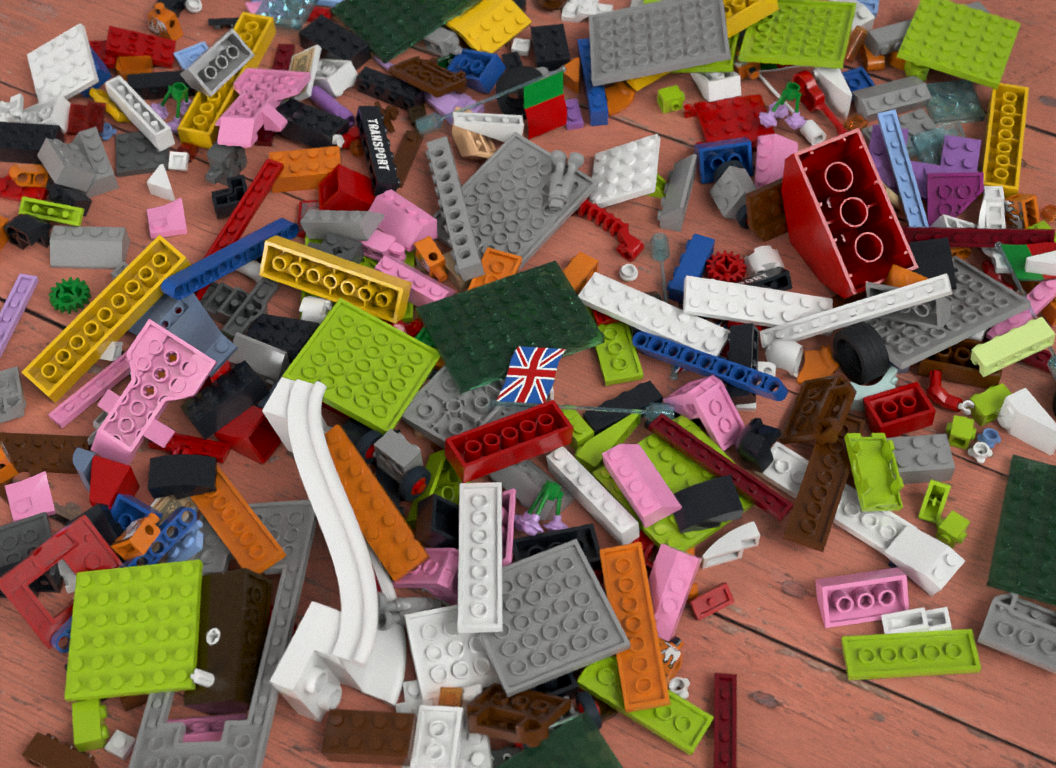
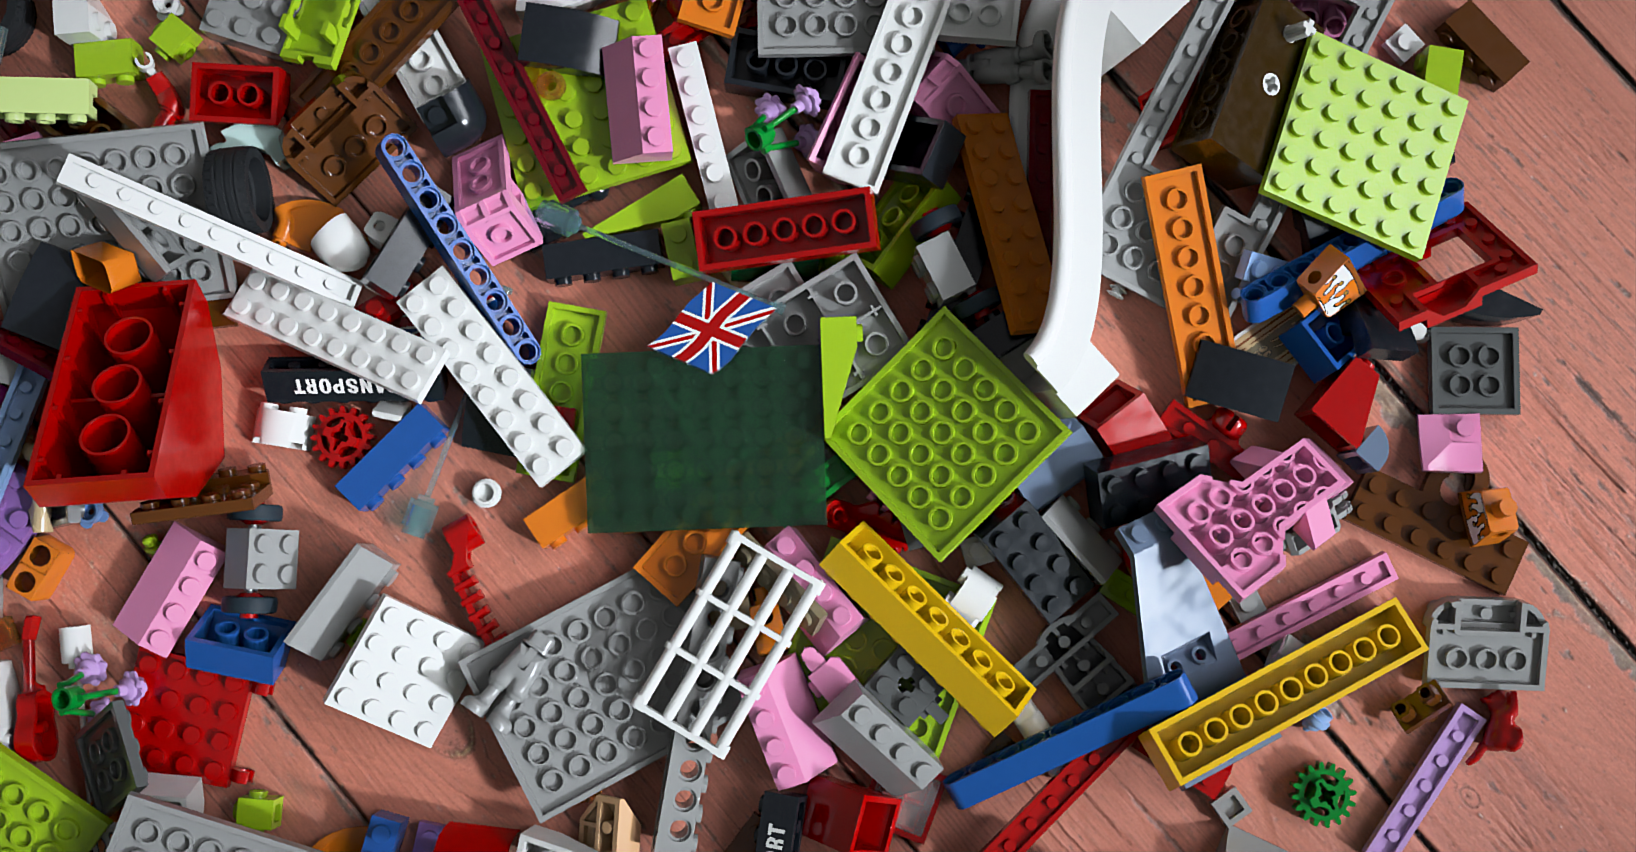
camera: 160 degrees left, 30 degrees up
(19, 352) = (1421, 706): none -> reddish brown hips
(426, 272) = (793, 592): none -> dark tan plate
(436, 241) = (700, 661): none -> white door
(448, 391) = (838, 350): none -> lime slope
(703, 474) = (543, 82): none -> clear orange plate
(754, 82) = (110, 758): none -> dark grey plate
(990, 437) = (137, 15): medium blue plate -> none

